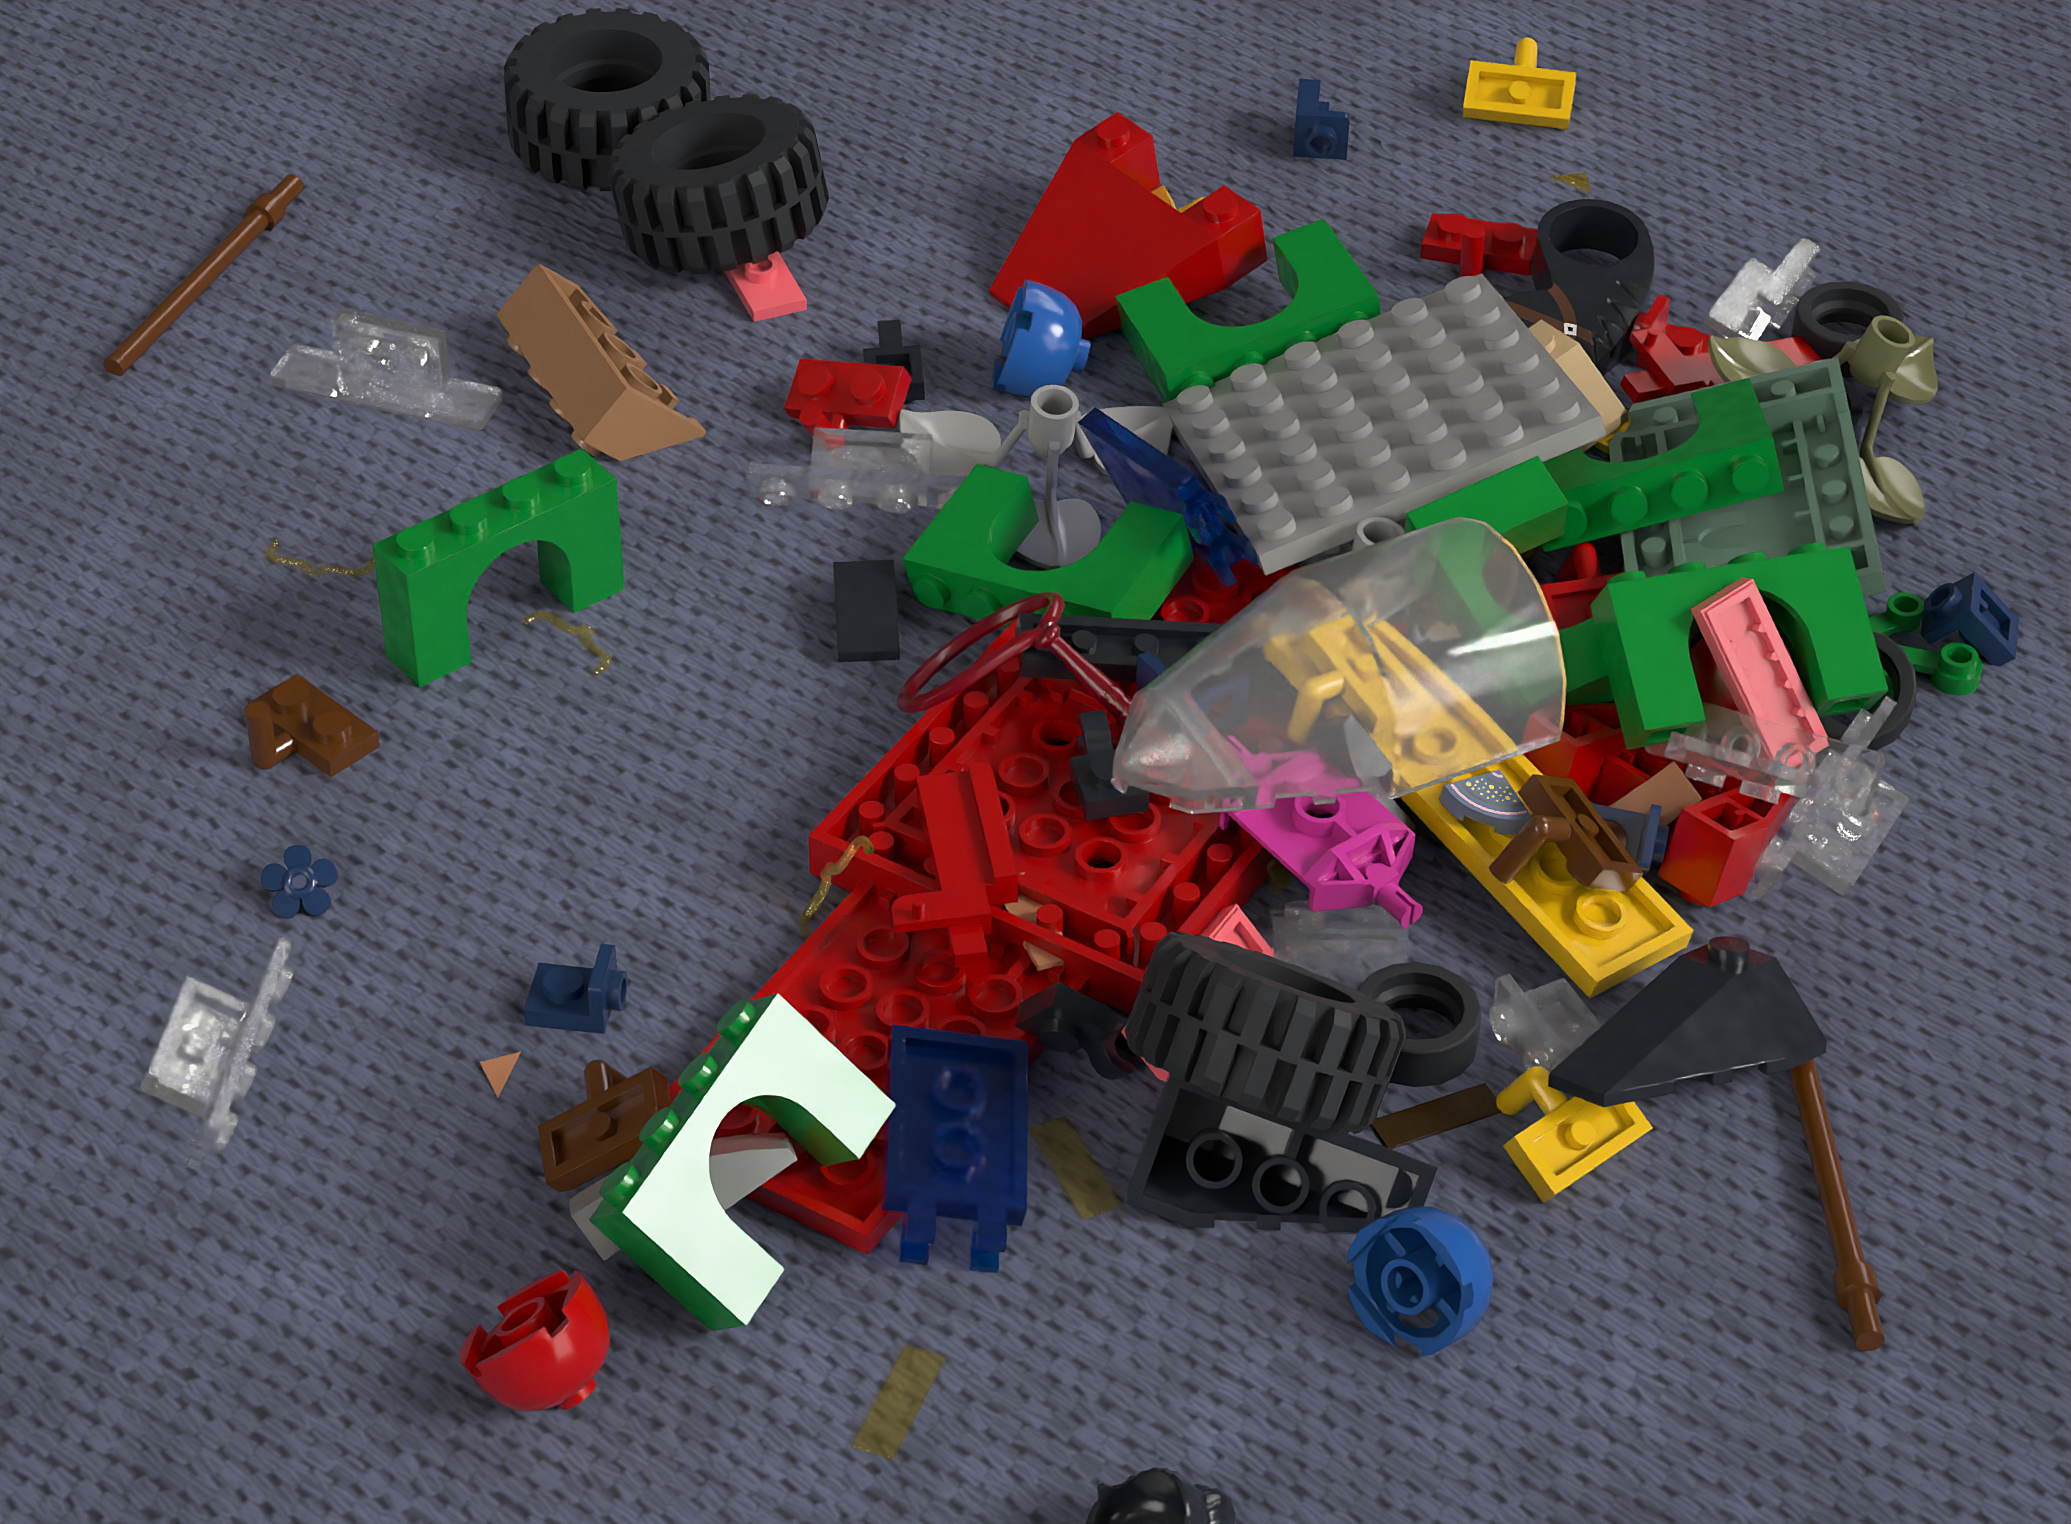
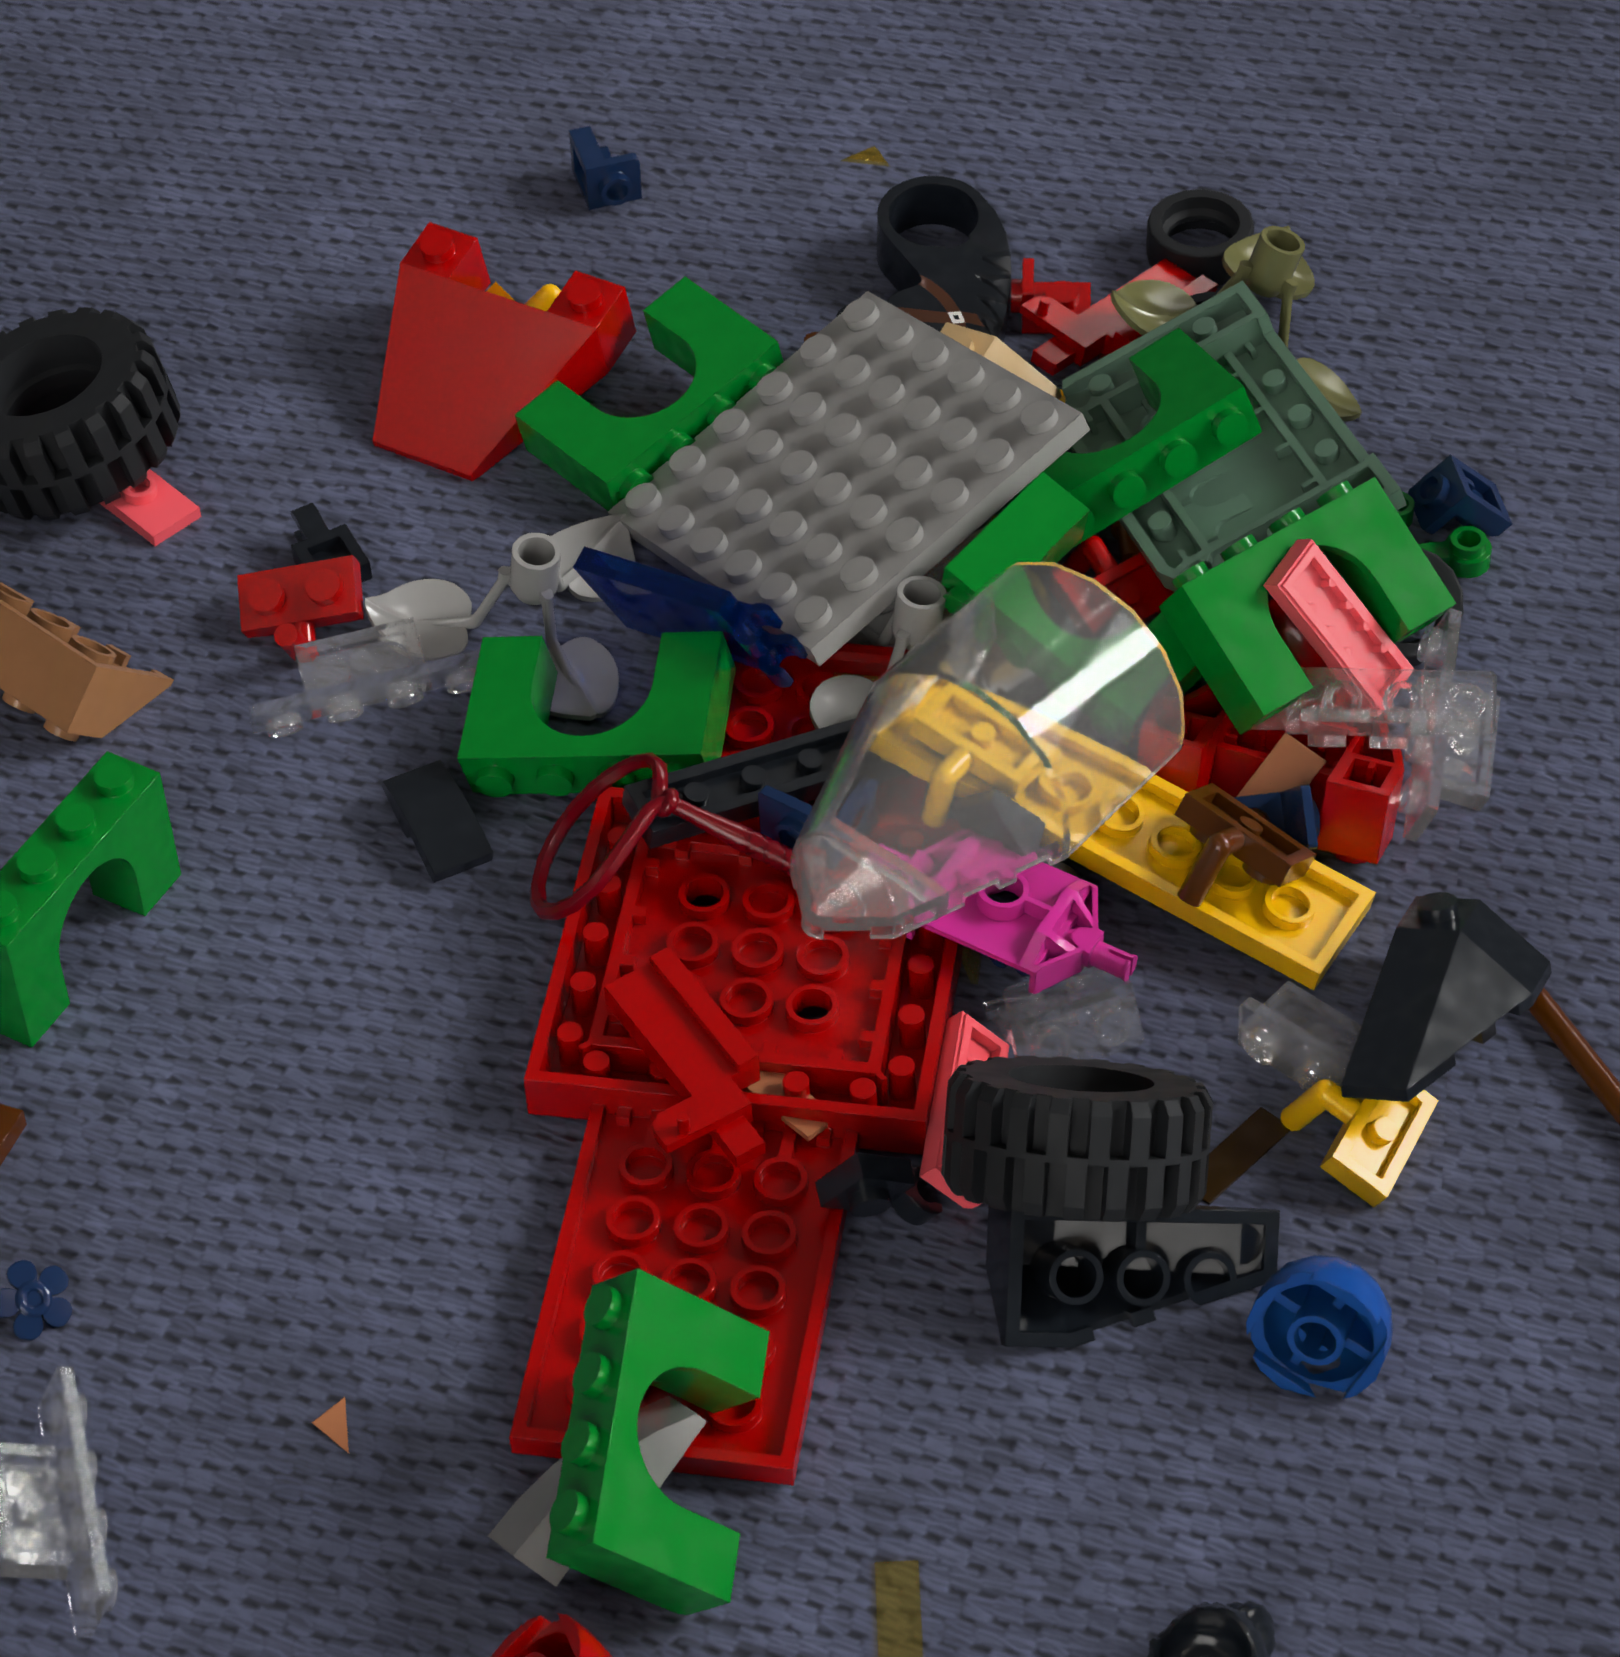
camera: 20 degrees left, 5 degrees up
(577, 996) = (373, 1320): dark blue bracket -> none
(583, 629) = (152, 935): clear yellow piece -> none
(603, 1127) = (492, 1449): reddish brown plate -> none
(831, 869) = (554, 1113): clear yellow piece -> none
(956, 1138) = (829, 1343): clear blue tile -> none
(1039, 341) = (465, 482): blue cylinder -> none
(1074, 1167) = (935, 1325): clear yellow window -> none
(1093, 770) = (771, 920): black plate -> none
(1435, 989) = (1192, 1034): black tyre -> none
(1479, 244) = (817, 253): red plate -> none
(1486, 800) = (1147, 831): sand blue tile -> none
(1520, 91) = (775, 80): yellow plate -> none
(1763, 296) = (1112, 231): clear bracket -> none

